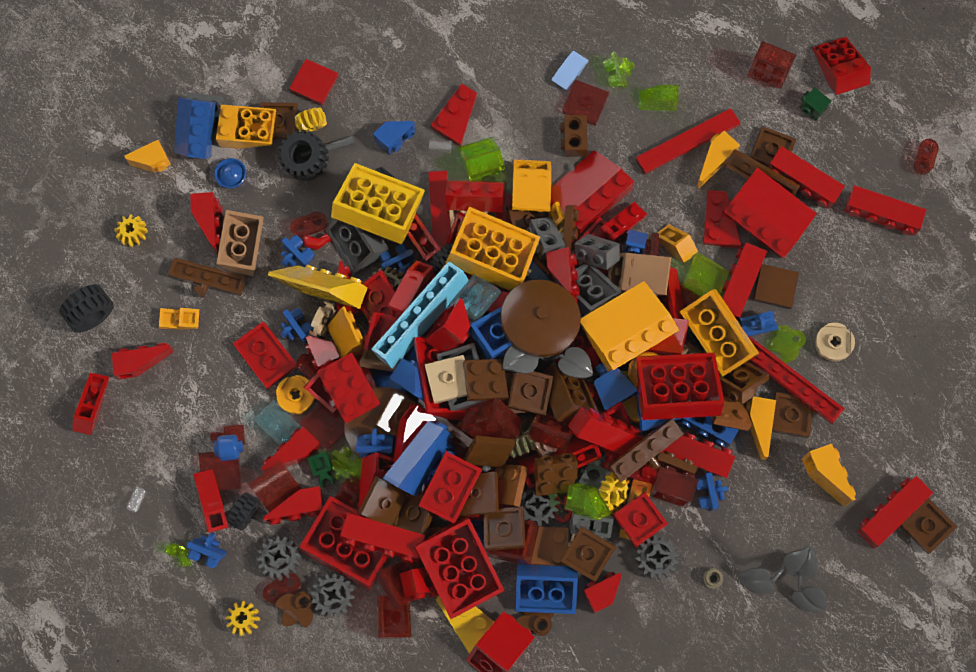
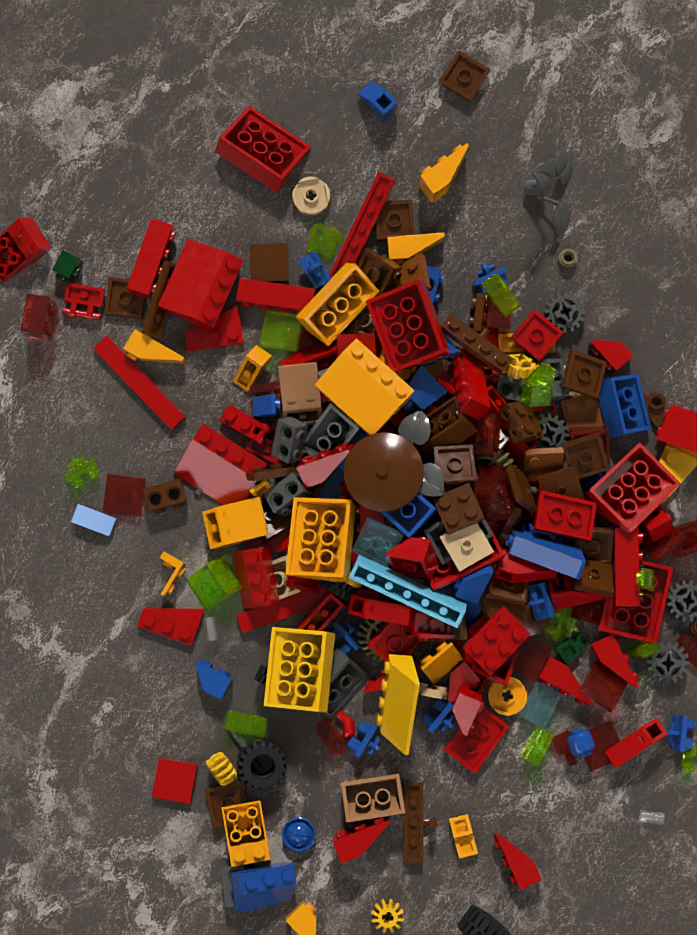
camera: 105 degrees left, 10 degrees up
(90, 404) = (573, 894): red slope -> none
(239, 407) = (537, 746): none -> clear neon green hips
(243, 511) = (635, 708): black tyre -> none
(295, 346) = (465, 707): none -> slope
(297, 535) = (643, 650): none -> clear neon green axle
(344, 153) = (245, 724): none -> clear neon green slope
(364, 550) = (646, 579): none -> clear neon green slope
(508, 130) = (170, 561): none -> light orange bracket
(659, 98) = (101, 421): clear neon green slope -> none
(689, 487) = (501, 295): none -> clear neon green slope
(702, 454) = (458, 291): red brick -> none
(783, 112) = (86, 296): none -> red plate
(884, 210) = (163, 175): red brick -> none
(893, 307) = (262, 149): none -> red slope
(894, 511) = (460, 108): red brick -> none
(918, 431) = (378, 100): none -> blue slope
(926, 158) = (96, 147): clear red plate -> none

